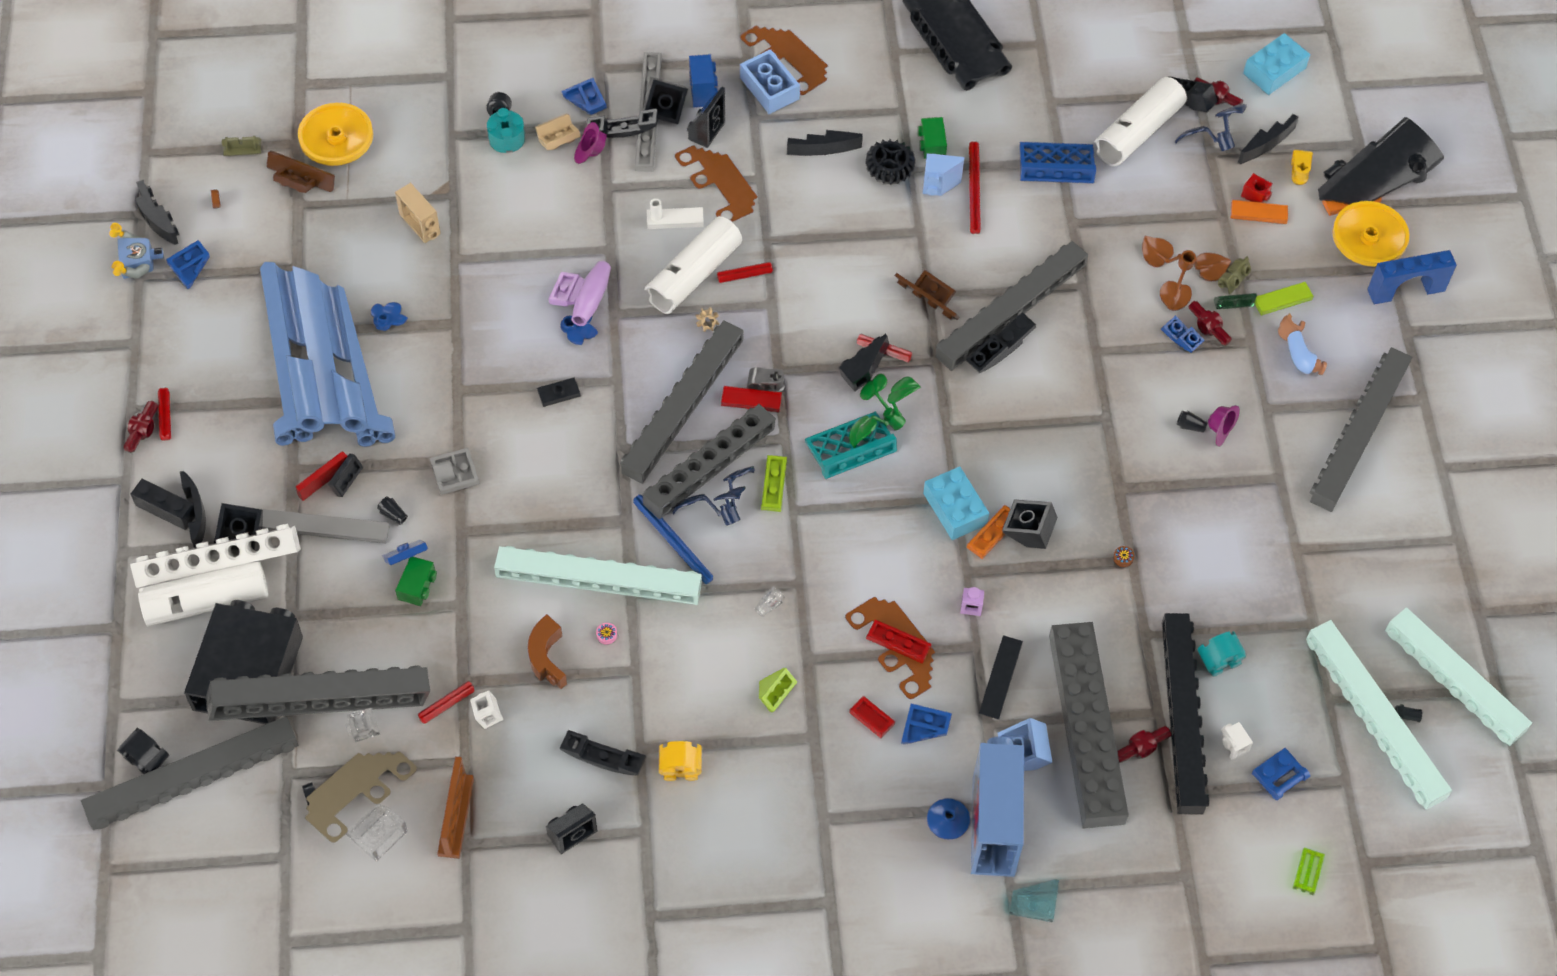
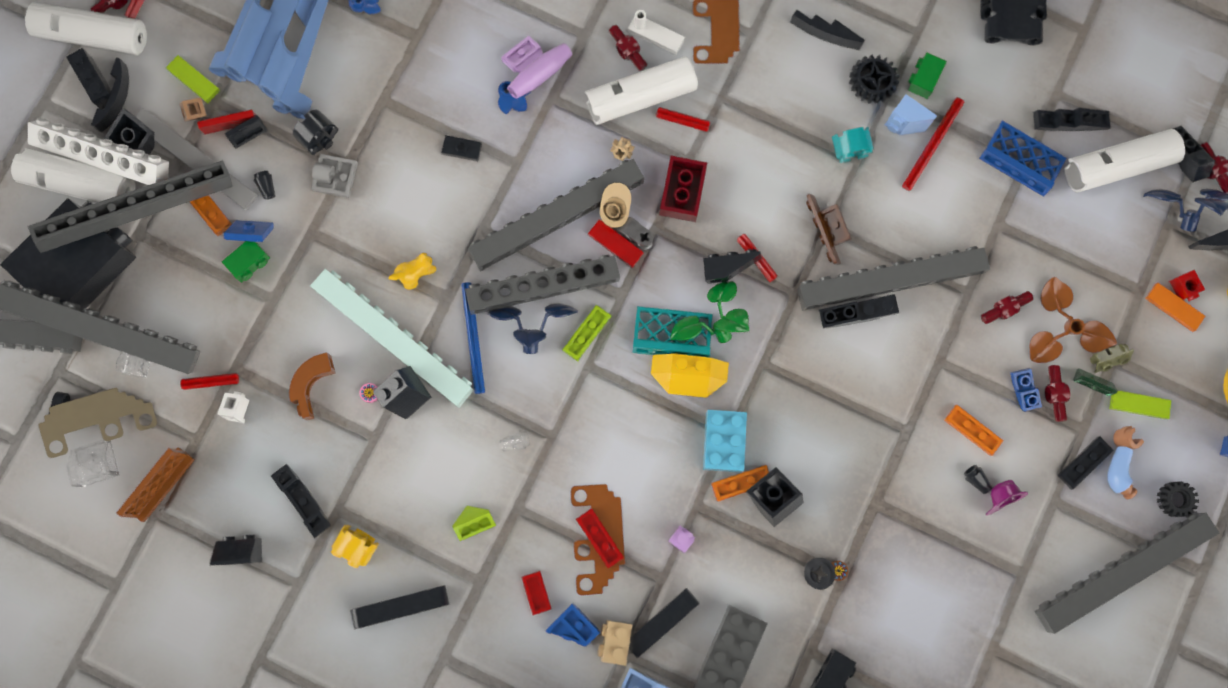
camera: 30 degrees right, 20 degrees up
(133, 462) = (86, 28): none -> white piece
(262, 459) = (192, 79): none -> lime tile
(282, 480) = (192, 109): none -> medium nougat brick
(285, 577) = (130, 206): none -> dark grey brick
(347, 560) = (211, 214): none -> orange tile
(415, 440) = (315, 132): none -> black brick
(581, 510) = (411, 271): none -> yellow animal
(641, 611) = (402, 393): none -> black slope
(657, 239) = (628, 47): none -> dark red axle
(732, 364) = (615, 205): none -> tan piece
(754, 794) = (399, 607): none -> black beam
(783, 323) = (683, 188): none -> dark red brick
(886, 467) = (689, 374): none -> yellow wedge
(907, 217) = (852, 144): none -> teal brick
(970, 714) = (615, 642): none -> tan bracket
(1078, 114) = (1072, 120): none -> black slope
(1101, 561) = (812, 578): none -> black gear
(1122, 279) = (1007, 307): none -> dark red axle
(1161, 388) = (973, 430): none -> orange tile
(1270, 365) = (1085, 462): none -> black tile
(1360, 361) = (1188, 496): none -> black tyre

